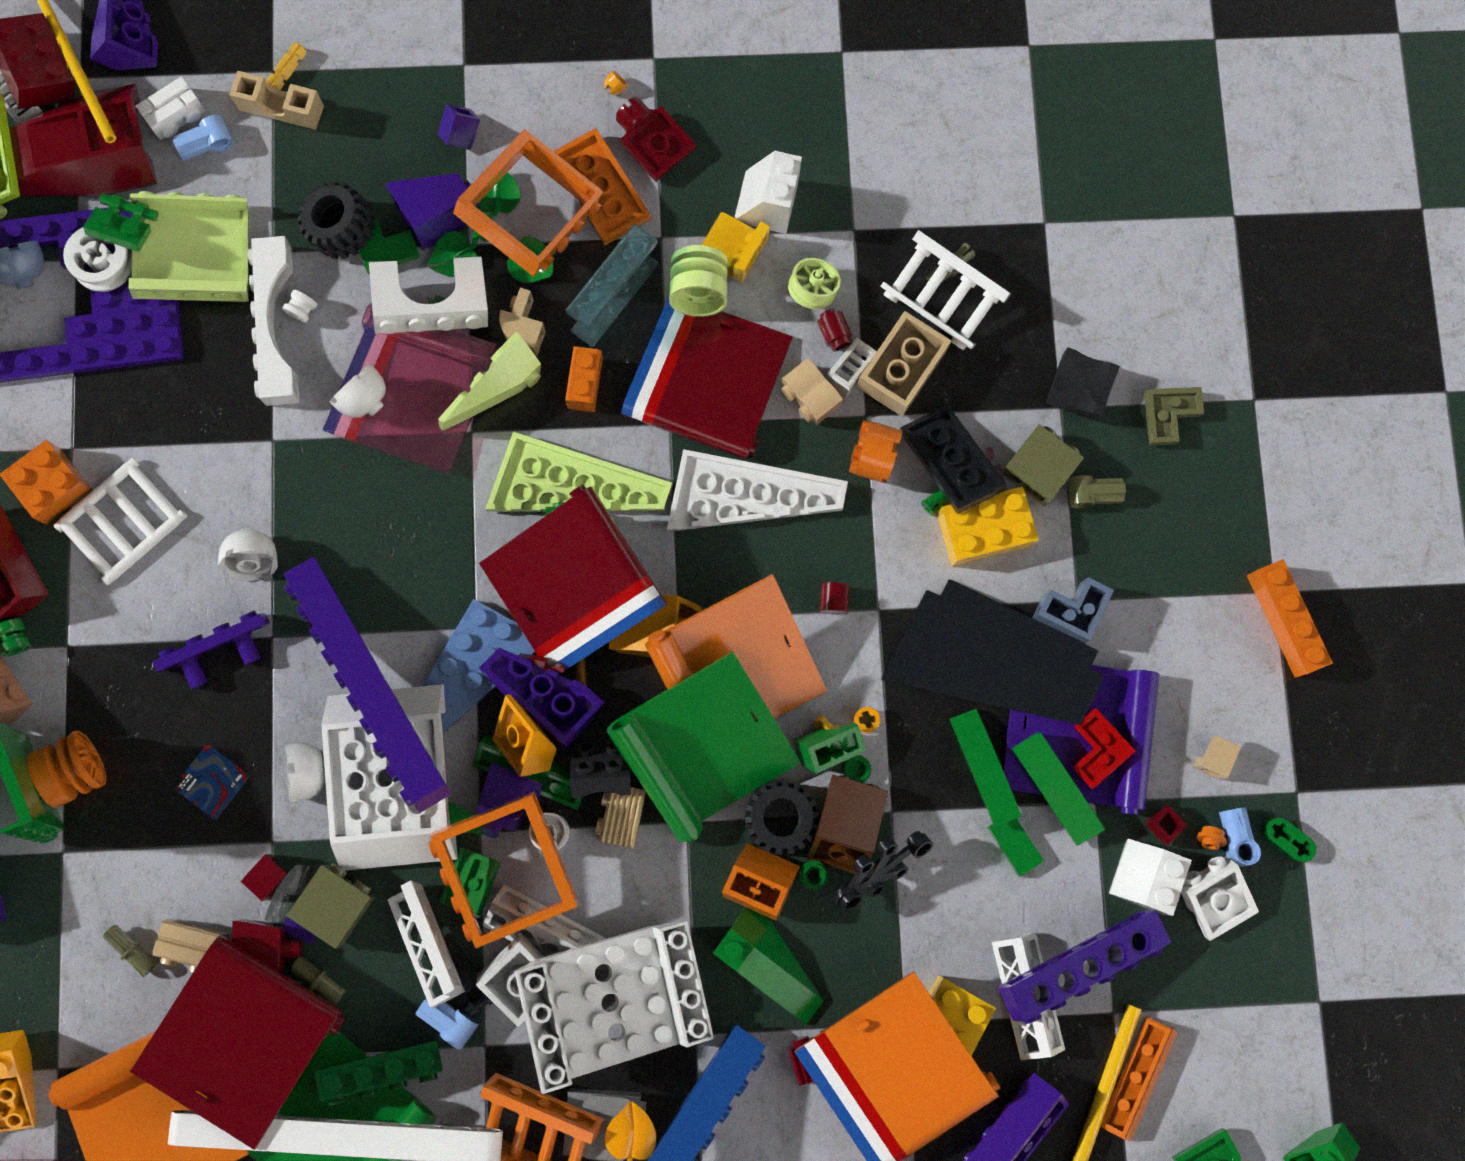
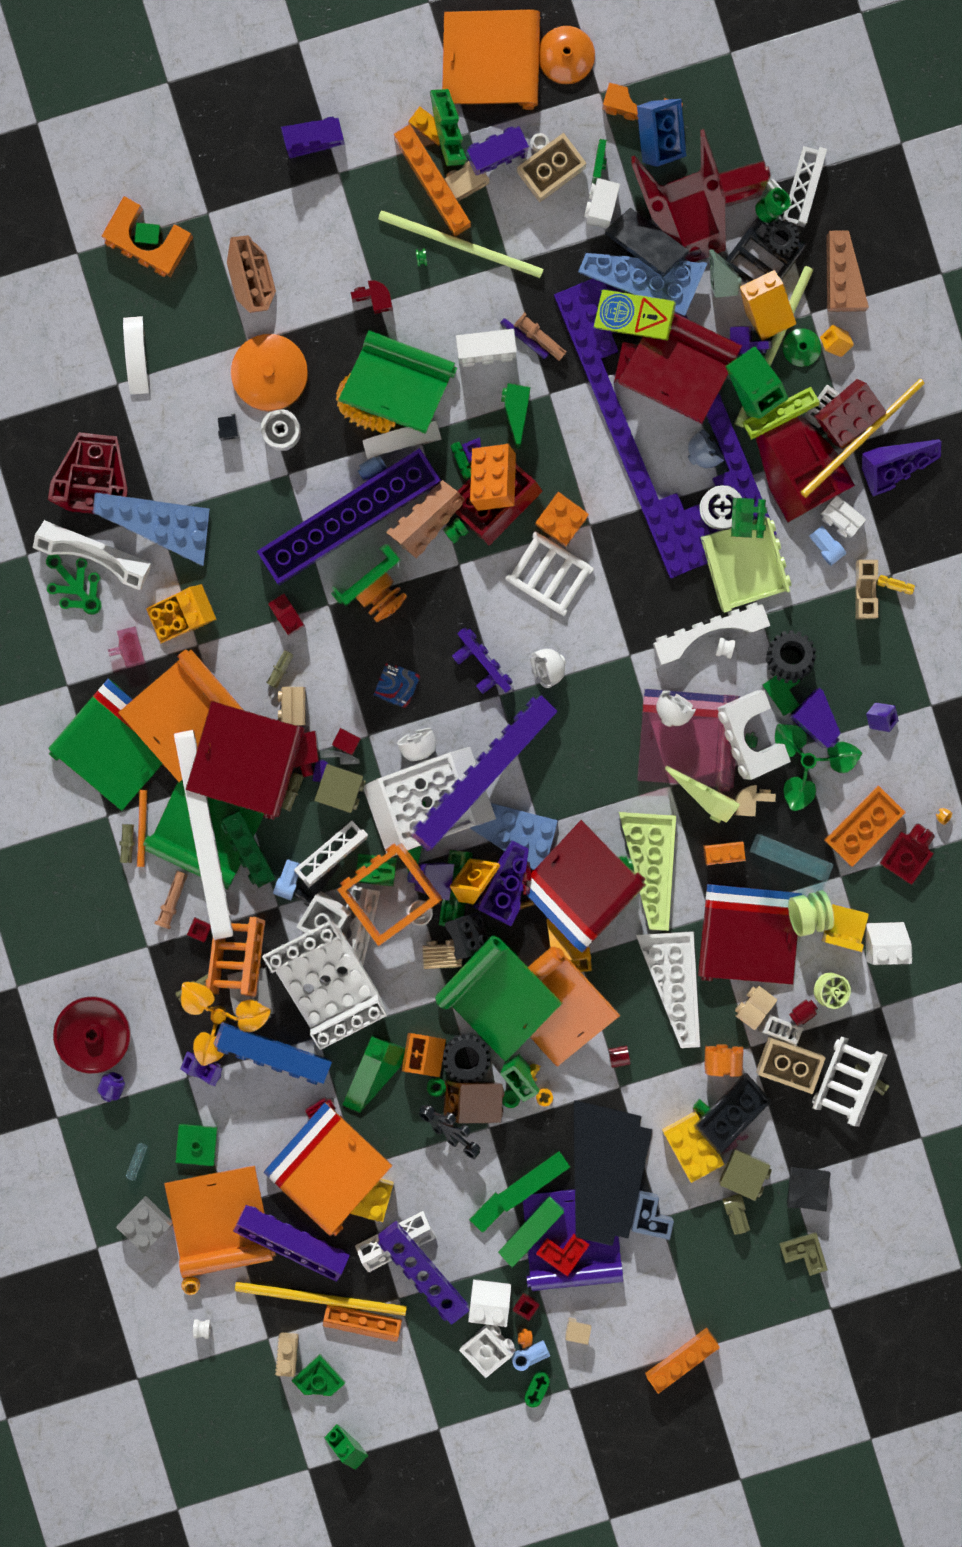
camera: 80 degrees right, 10 degrees up
(54, 918) = (286, 615): none -> dark red arch
(555, 167) = (863, 799): orange window -> none

